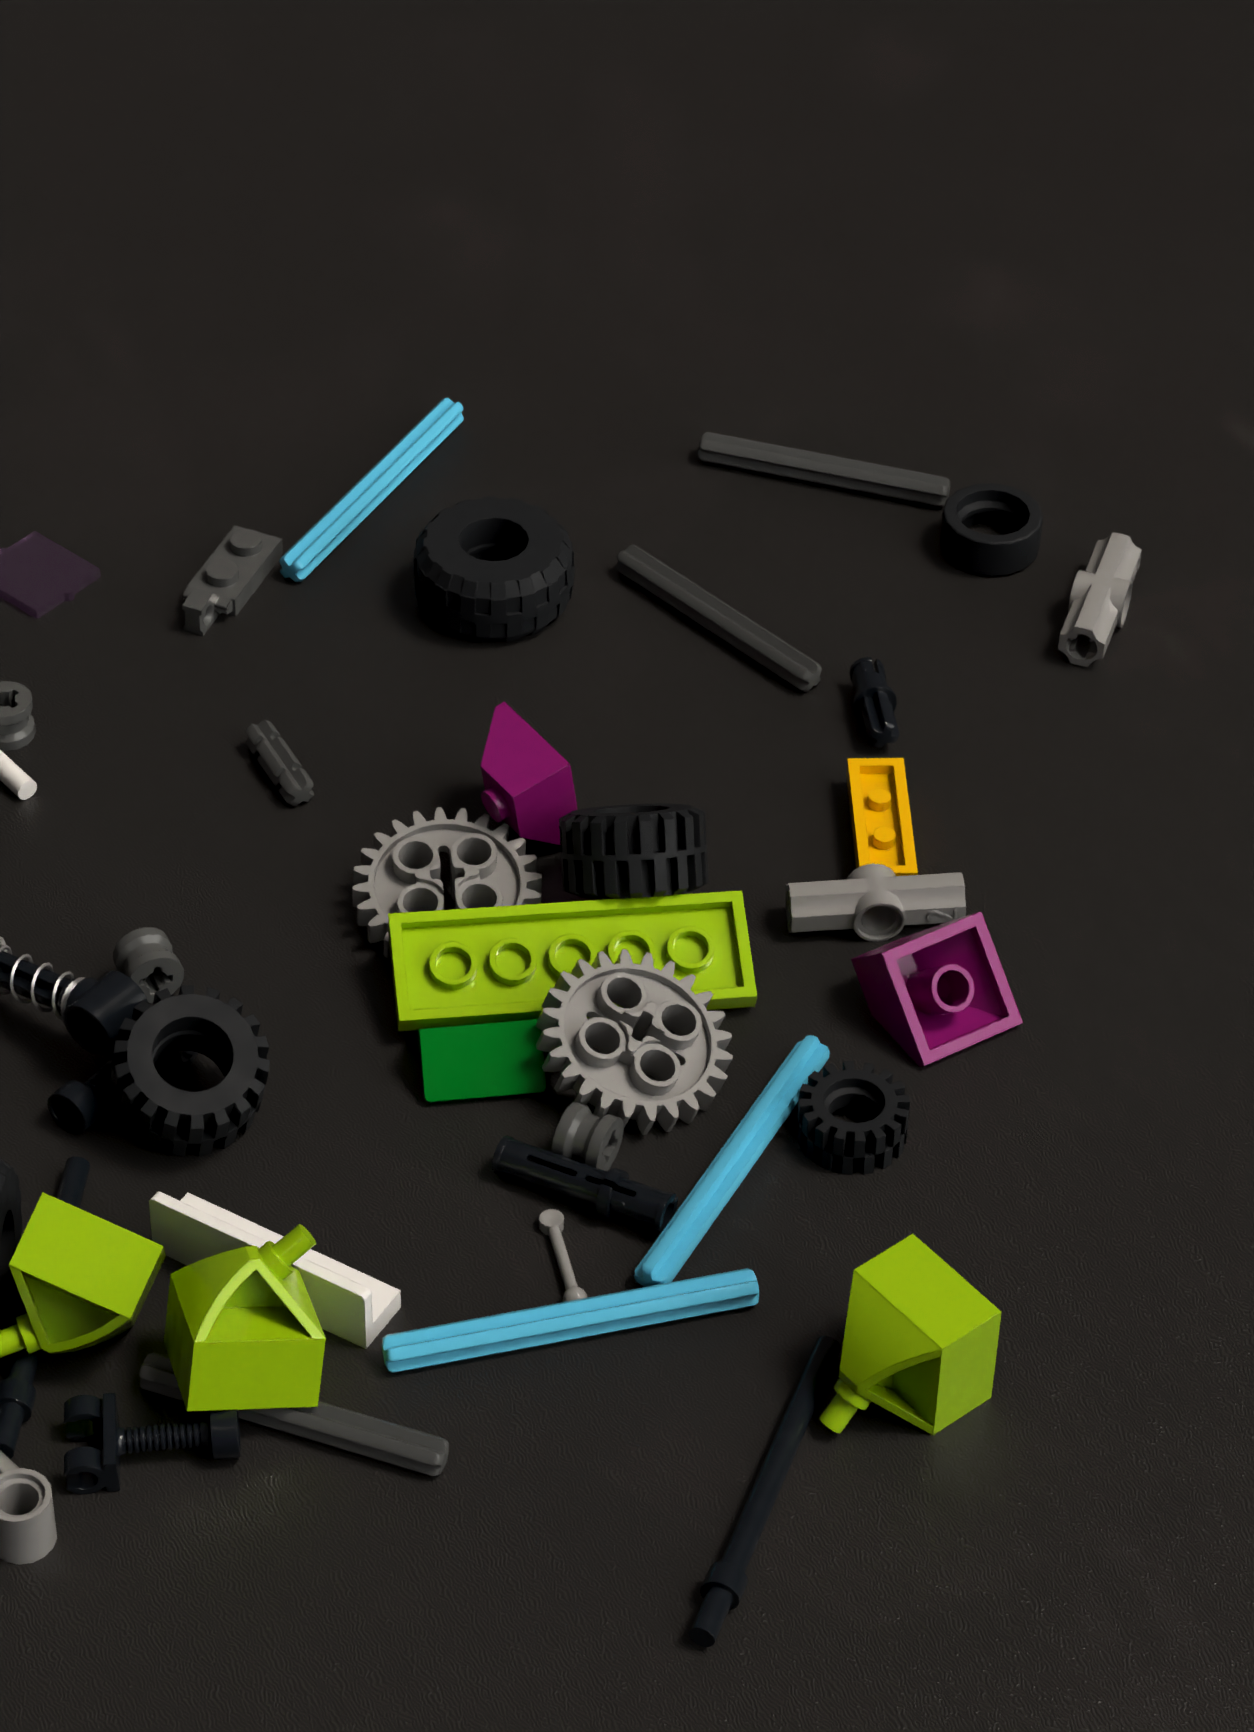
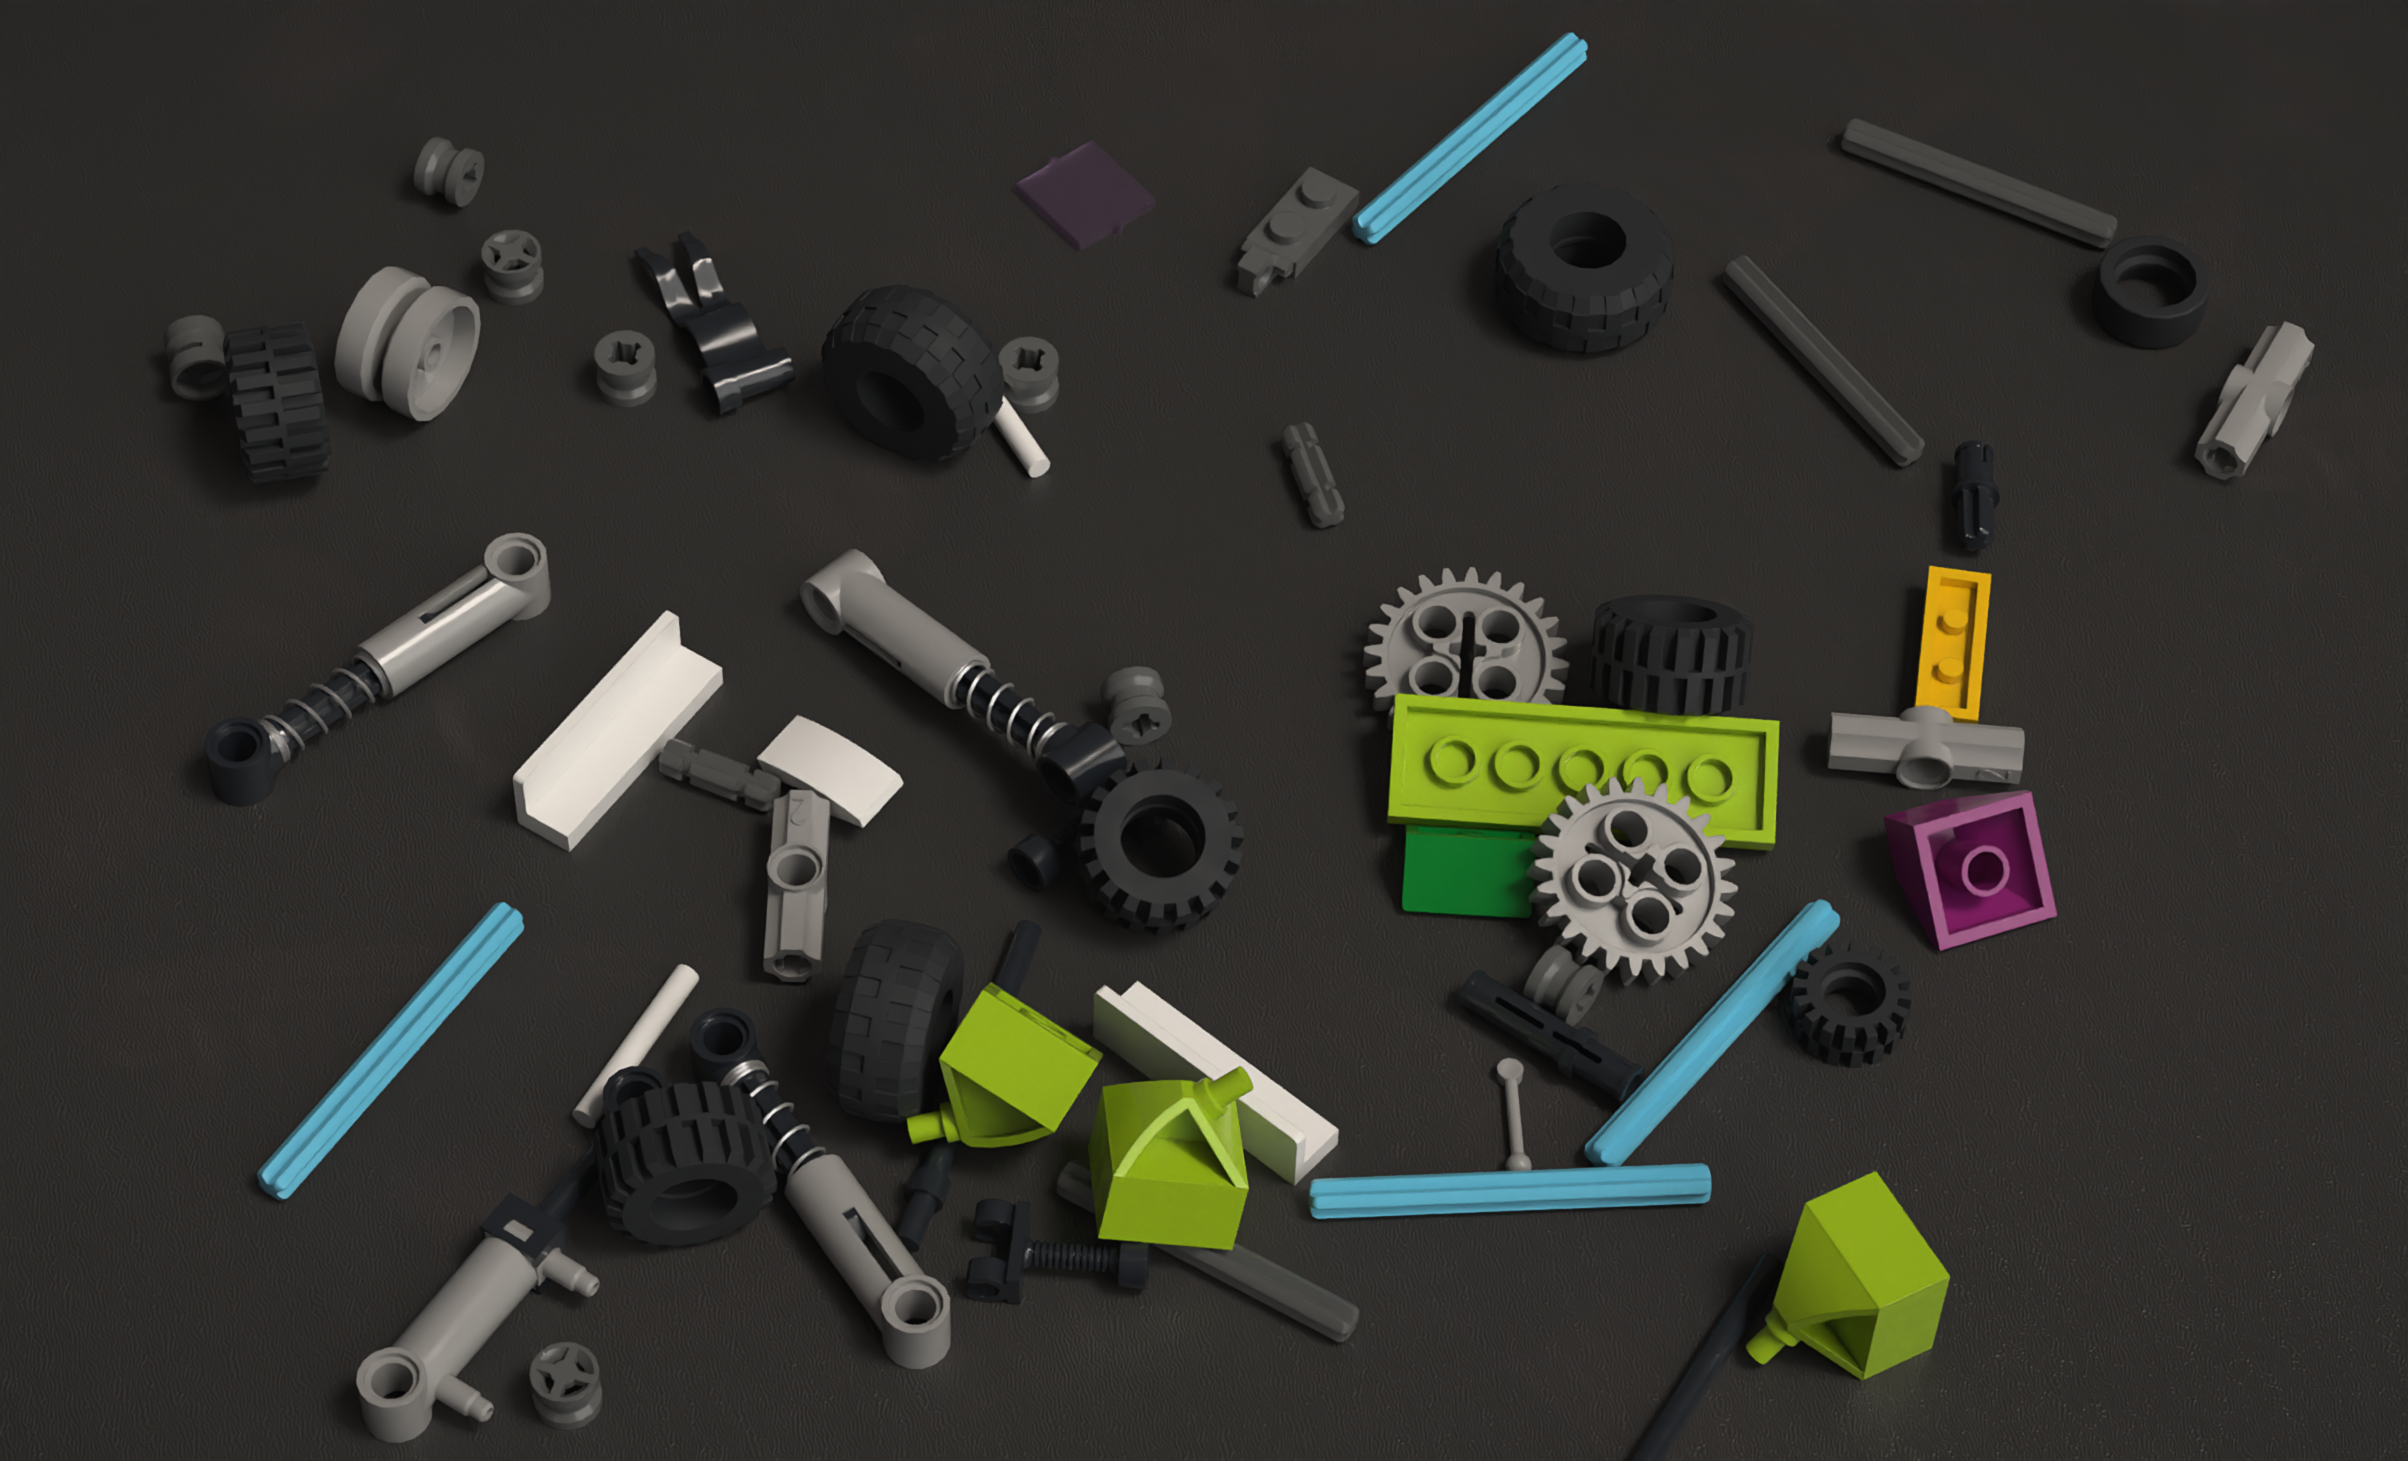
camera: 10 degrees right, 10 degrees up
(525, 778) = (1568, 549): magenta slope -> none

